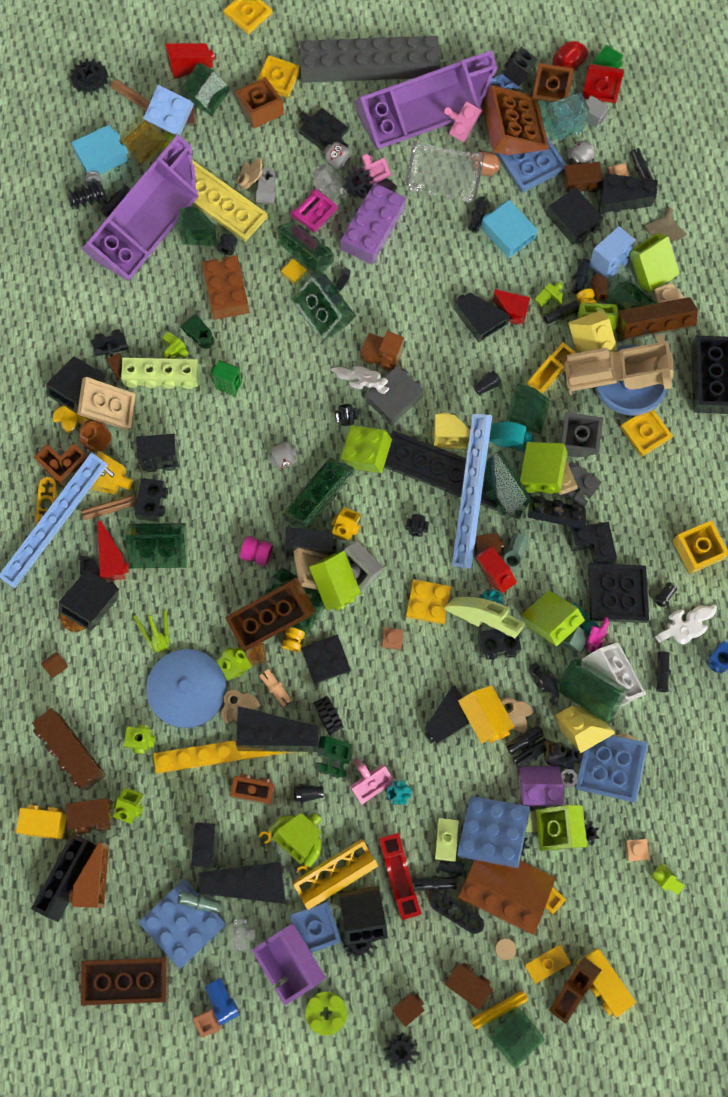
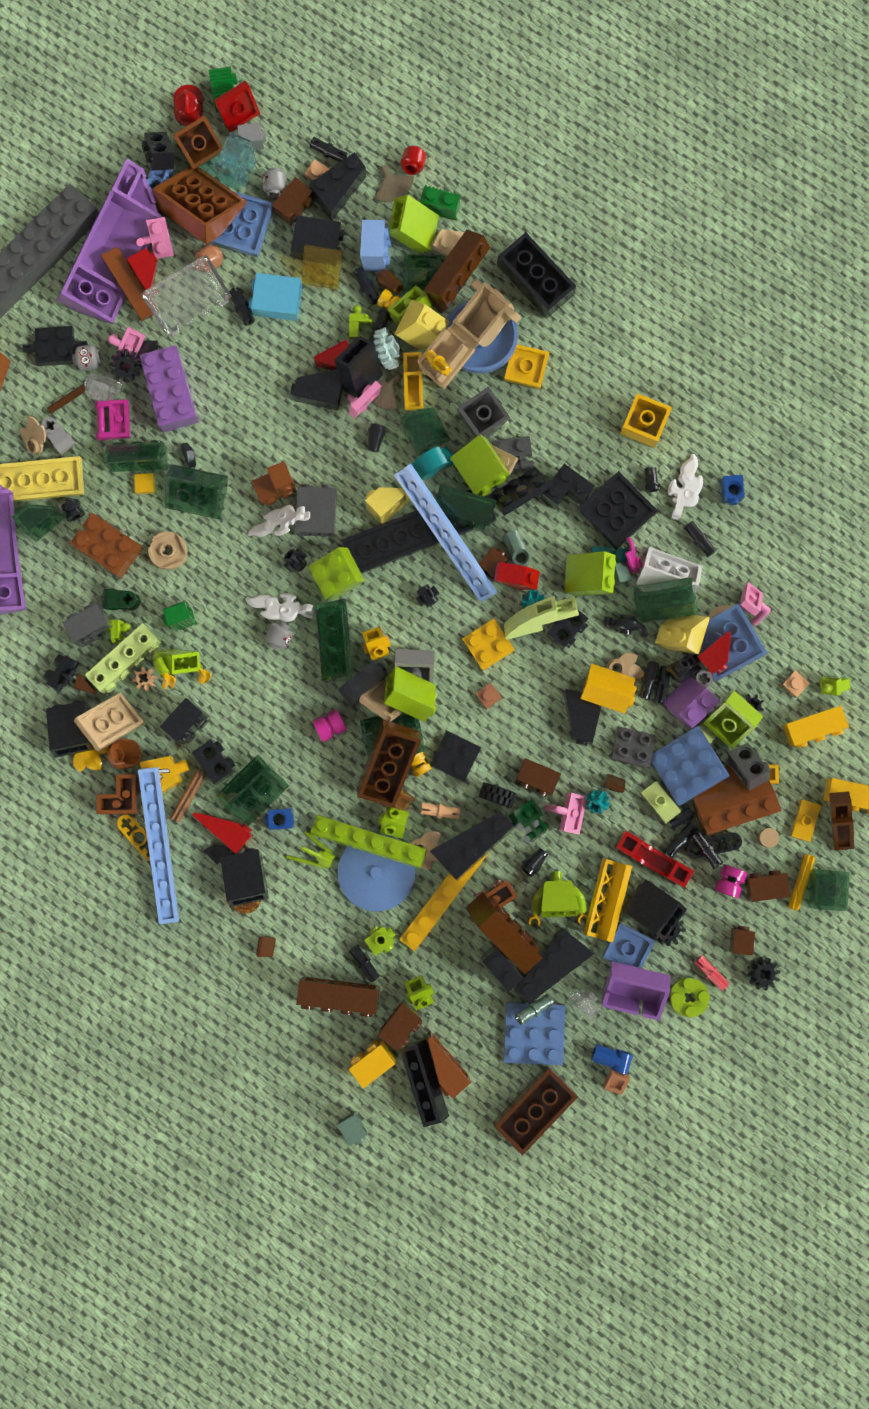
camera: 40 degrees left, 10 degrees up
(111, 746) = (364, 963): none -> black axle
(156, 399) = (141, 682): none -> light nougat gear
(157, 325) = (86, 625): none -> dark grey brick
(159, 591) = (288, 819): none -> blue brick
(195, 408) = (176, 662): none -> lime torso
(202, 660) = (368, 841): none -> lime plate
(232, 818) = (504, 932): none -> reddish brown brick
(262, 319) = (157, 547): none -> tan plate
(294, 170) = (66, 399): none -> reddish brown bar
(302, 442) = (285, 612): none -> white piece
(361, 1011) = (711, 972): none -> coral axle
(371, 731) = (538, 777): none -> reddish brown brick
(414, 129) = (127, 281): none -> dark orange tile
(425, 792) = (614, 783): none -> reddish brown slope
(435, 130) = (144, 267): none -> red slope
(436, 955) = (727, 887): none -> dark pink wheel
(447, 909) = (707, 849): none -> black pin
(465, 778) = (633, 747): none -> dark grey hinge
(500, 349) = (360, 404): none -> bright pink plate
(520, 322) = (358, 366): none -> black brick
(522, 357) = (386, 396): none -> dark tan hand
(537, 875) = (744, 768): none -> dark grey brick
(553, 328) = (387, 348): none -> light aqua gear
(560, 236) = (321, 267): none -> clear yellow tile
(580, 366) = (437, 362): none -> yellow axle
(595, 766) = (717, 654): none -> red slope
(622, 897) = (816, 727): none -> yellow brick
(659, 753) = (752, 603): none -> bright pink plate
(689, 266) = (441, 202): none -> green brick
(696, 222) = (413, 160): none -> red head

